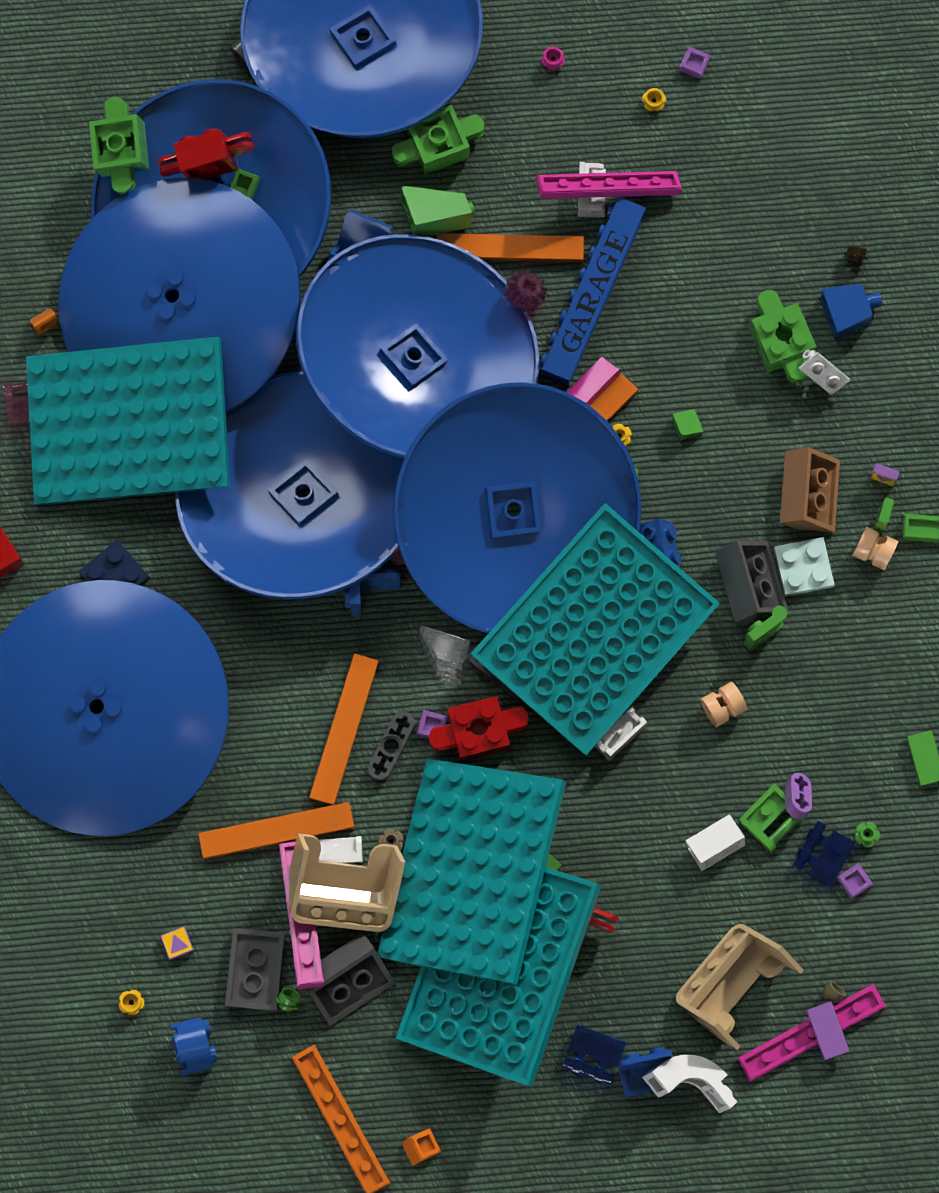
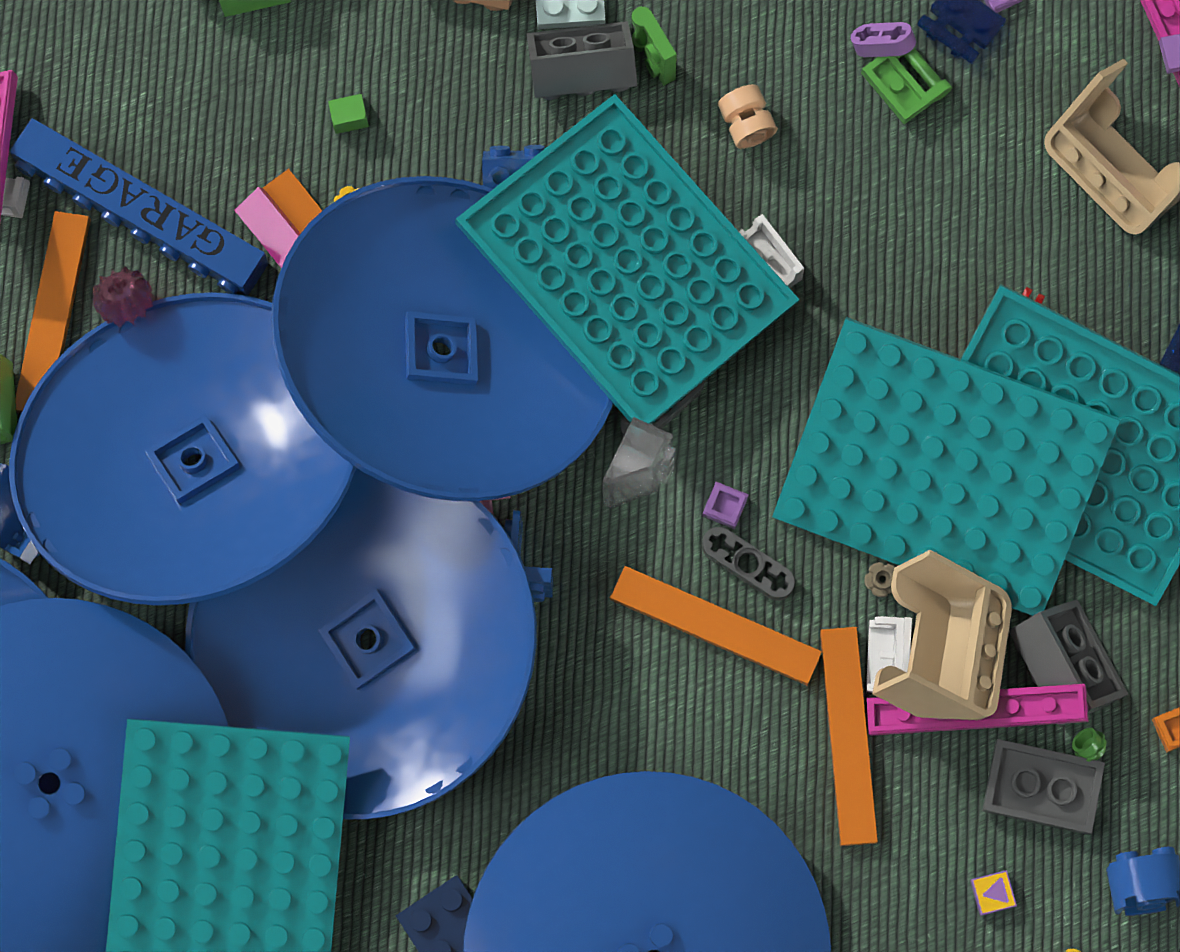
camera: 80 degrees left, 0 degrees up
(478, 729) = (741, 439): red brick -> none
(715, 842) = (932, 154): white hinge -> none
(834, 992) = (1146, 37): olive hinge -> none

